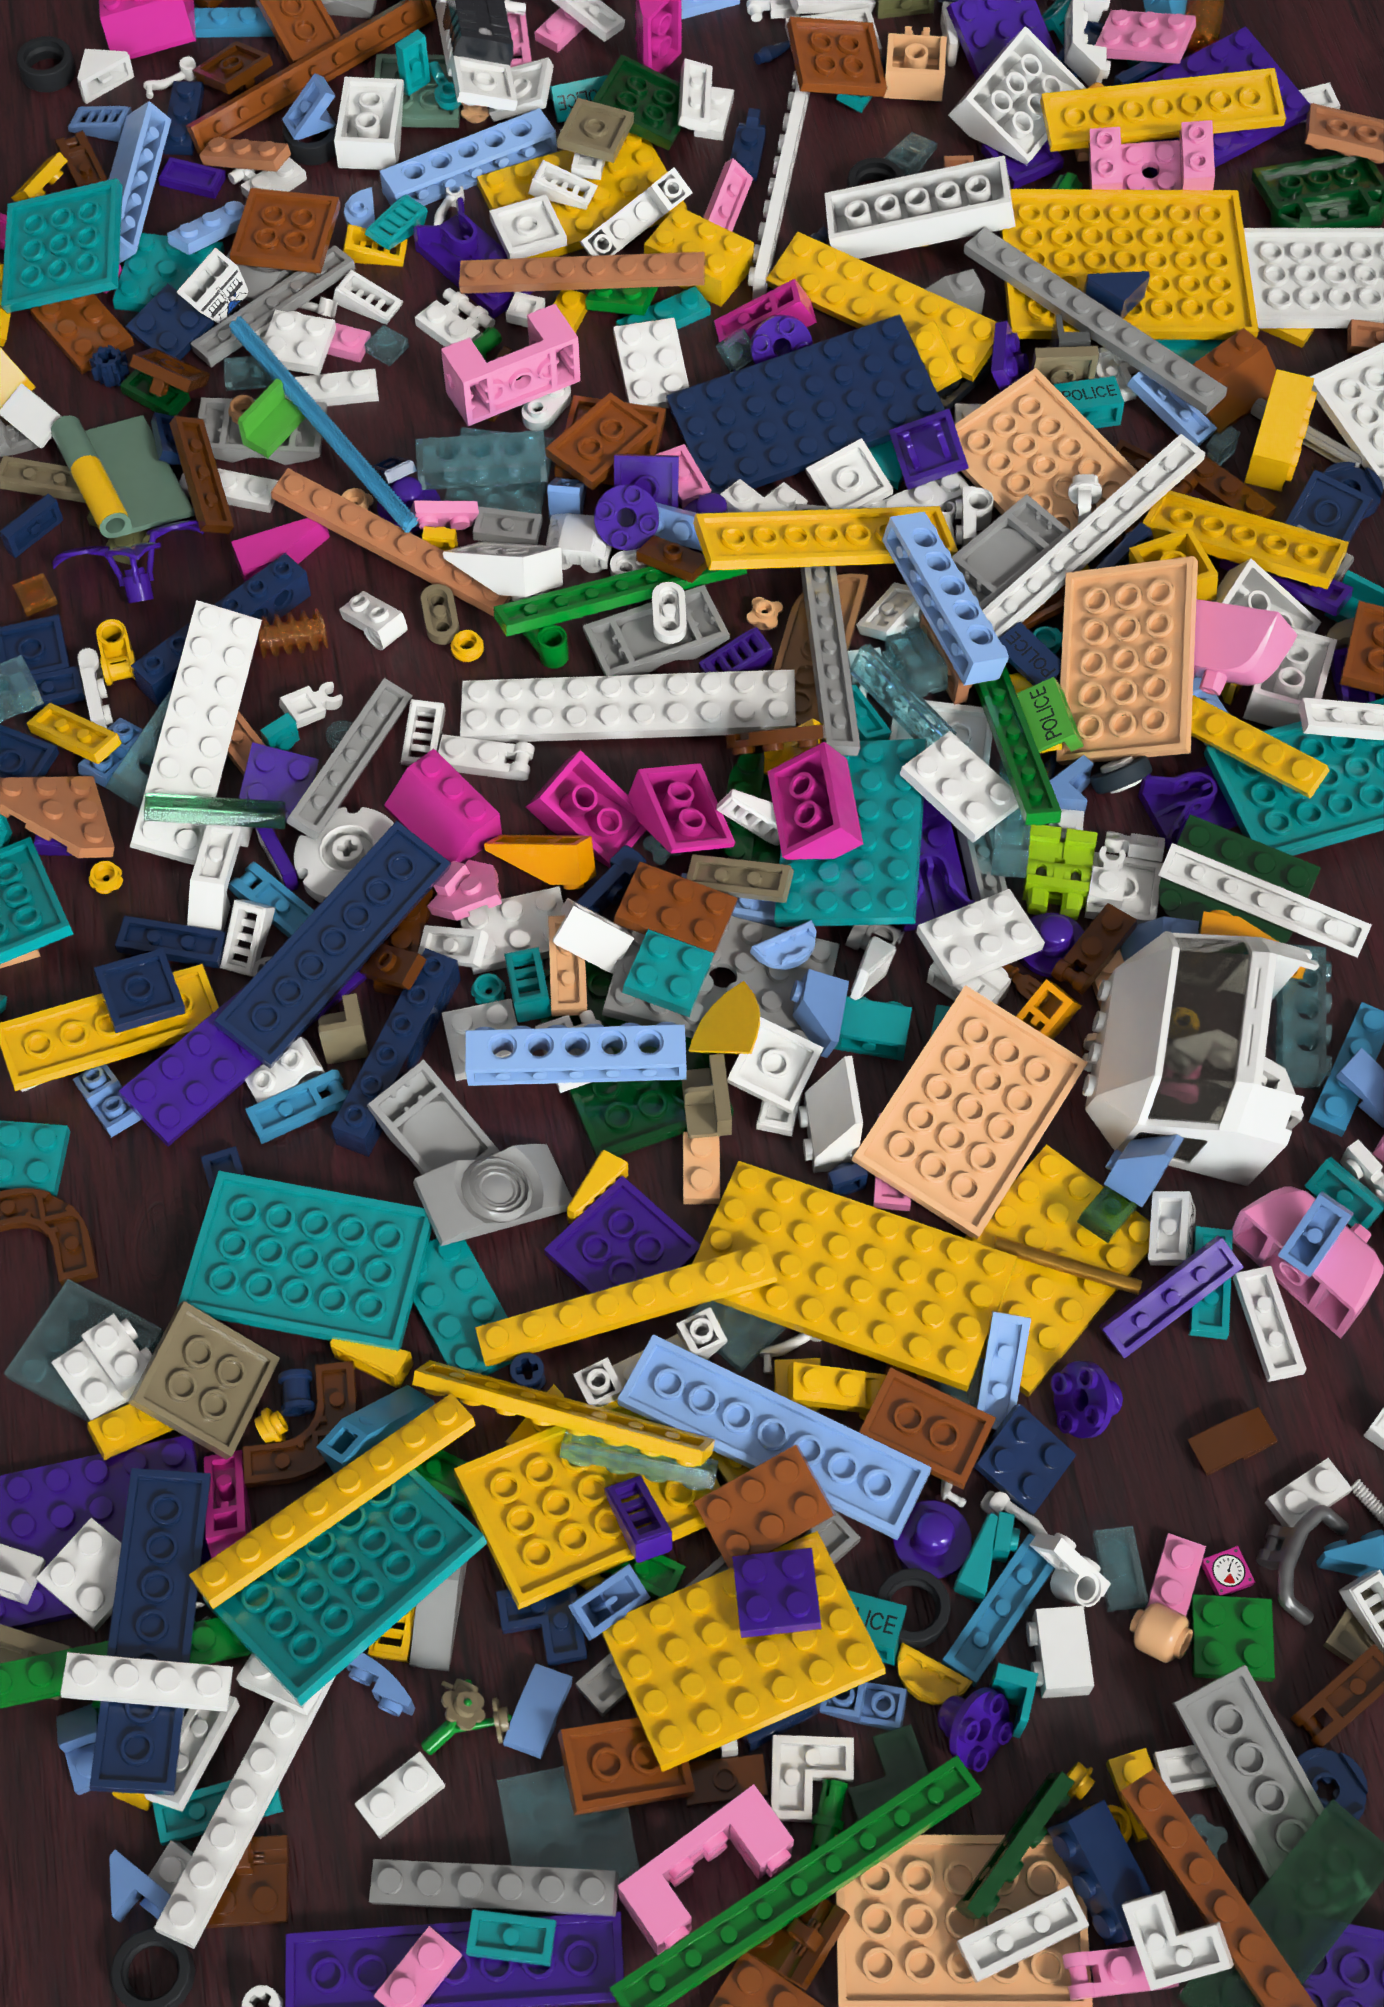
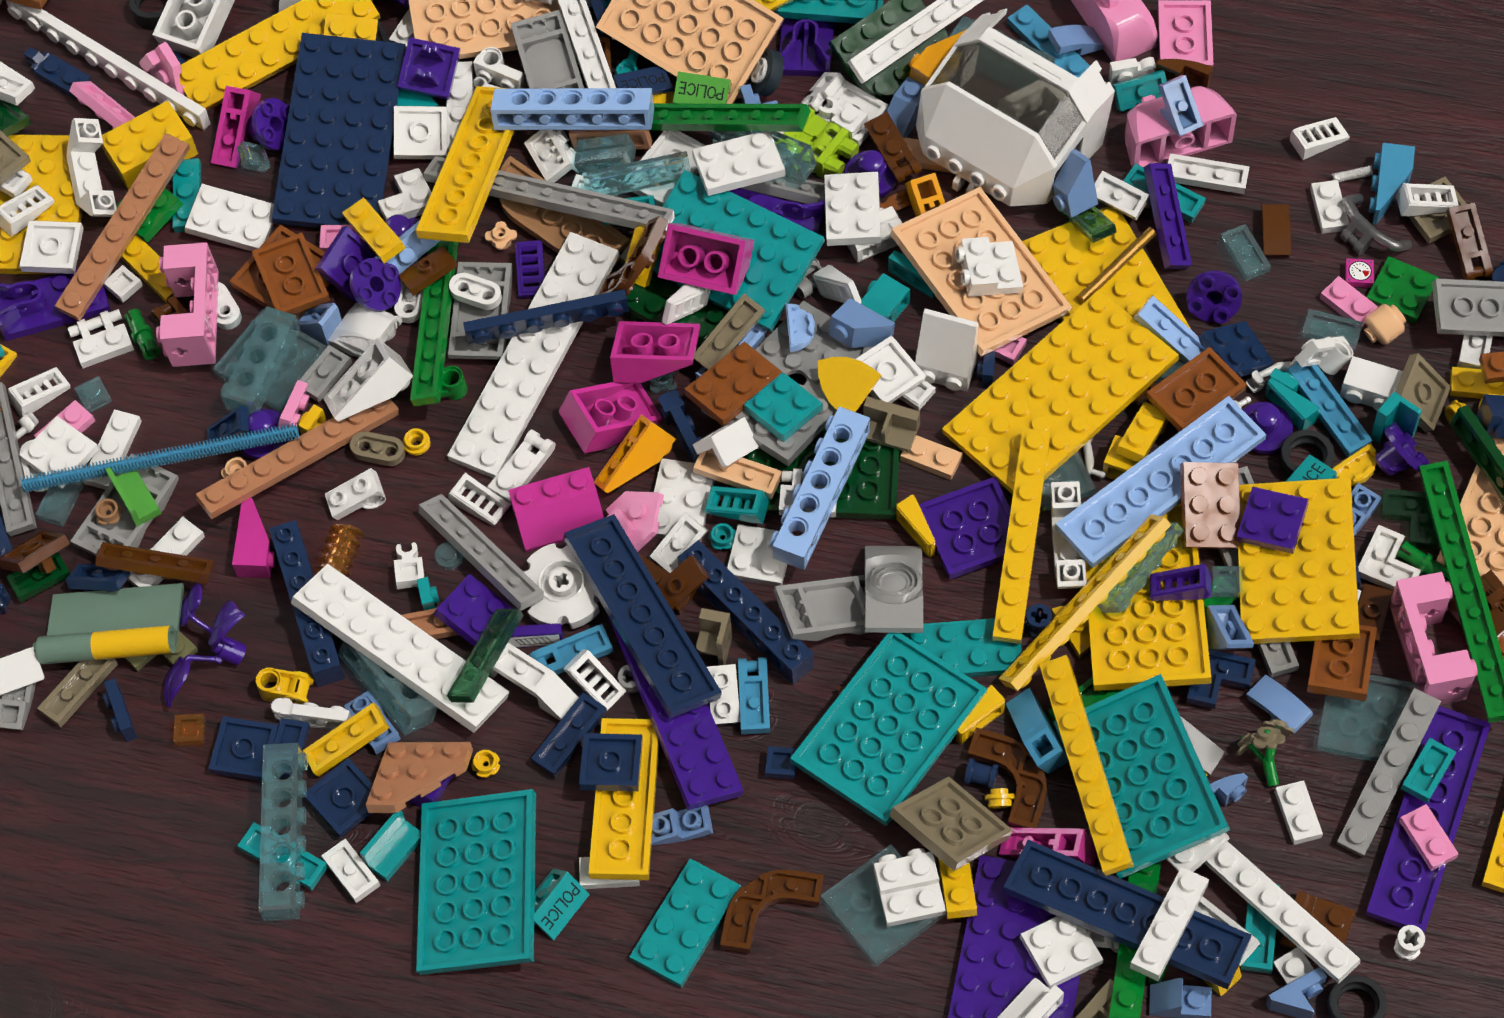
camera: 60 degrees left, 0 degrees up
(669, 695) = (546, 316): none -> dark blue plate
(673, 1573) = (1227, 581): none -> clear light blue plate
(691, 485) = (373, 230): none -> yellow plate
(797, 210) = (163, 66): none -> bright pink plate
(972, 1114) = (988, 267): none -> white plate
(1075, 1718) = (1424, 389): none -> dark tan plate
(1178, 1415) = (1245, 252): none -> clear light blue plate

